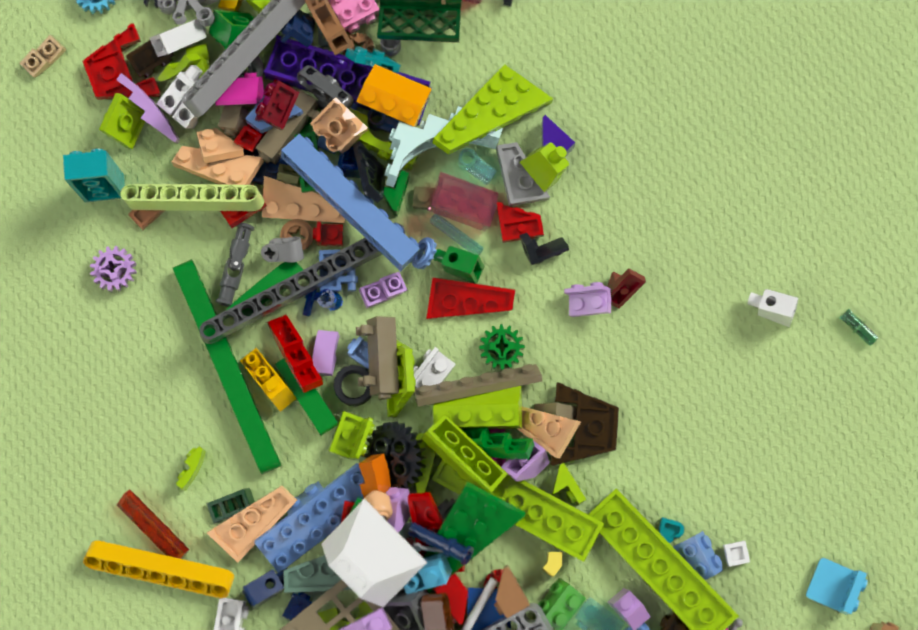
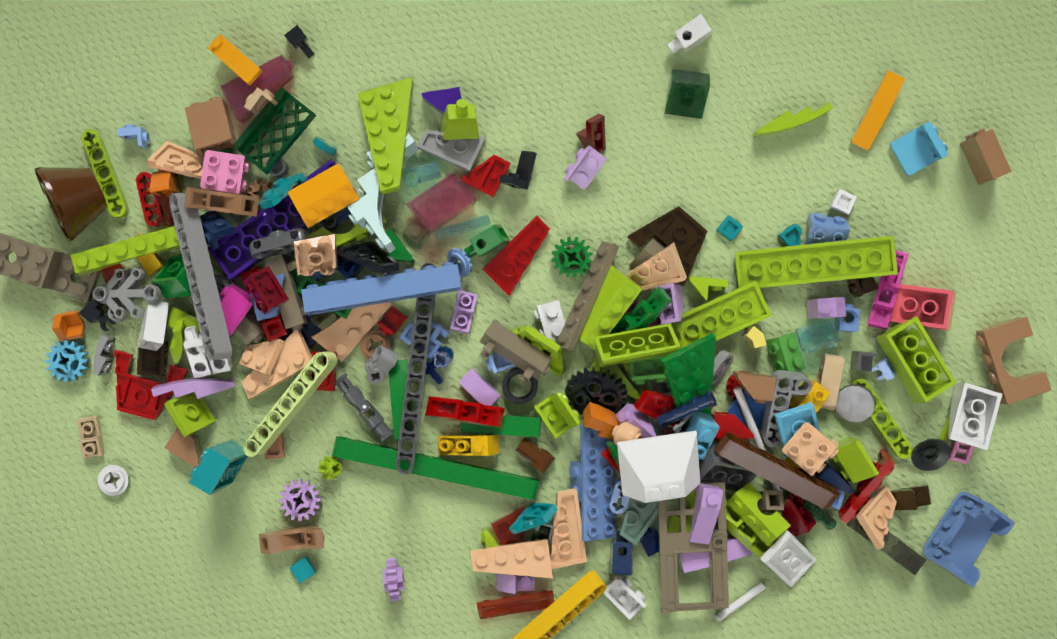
camera: 55 degrees left, 10 degrees up
(18, 92) = (106, 475): none -> white gear
(52, 316) = (303, 569): none -> teal tile
(72, 285) = (291, 538): none -> medium nougat arch
(90, 136) = (186, 448): none -> medium nougat slope
(99, 399) = (393, 579): none -> lavender gear
(115, 20) = (102, 361): none -> light grey slope
(160, 273) = (330, 467): none -> lime gear
(174, 511) = (513, 583): none -> lavender slope
(198, 499) = (522, 559): none -> light nougat wing
(216, 474) = (502, 531): none -> clear red wing
(244, 481) = (533, 516): none -> teal wing
(301, 450) = (537, 456): none -> reddish brown piece
(317, 541) = (616, 493): none -> medium blue beam
(438, 69) = (324, 146): none -> teal tile
(448, 483) = (647, 370): none -> bright green bracket
(502, 551) = (721, 364): none -> light grey beam
(633, 469) = (729, 228): none -> teal tile
(722, 341) = (687, 93): none -> clear green slope
(766, 448) = (788, 122): none -> lime slope
(841, 522) = (878, 110): none -> light orange slope

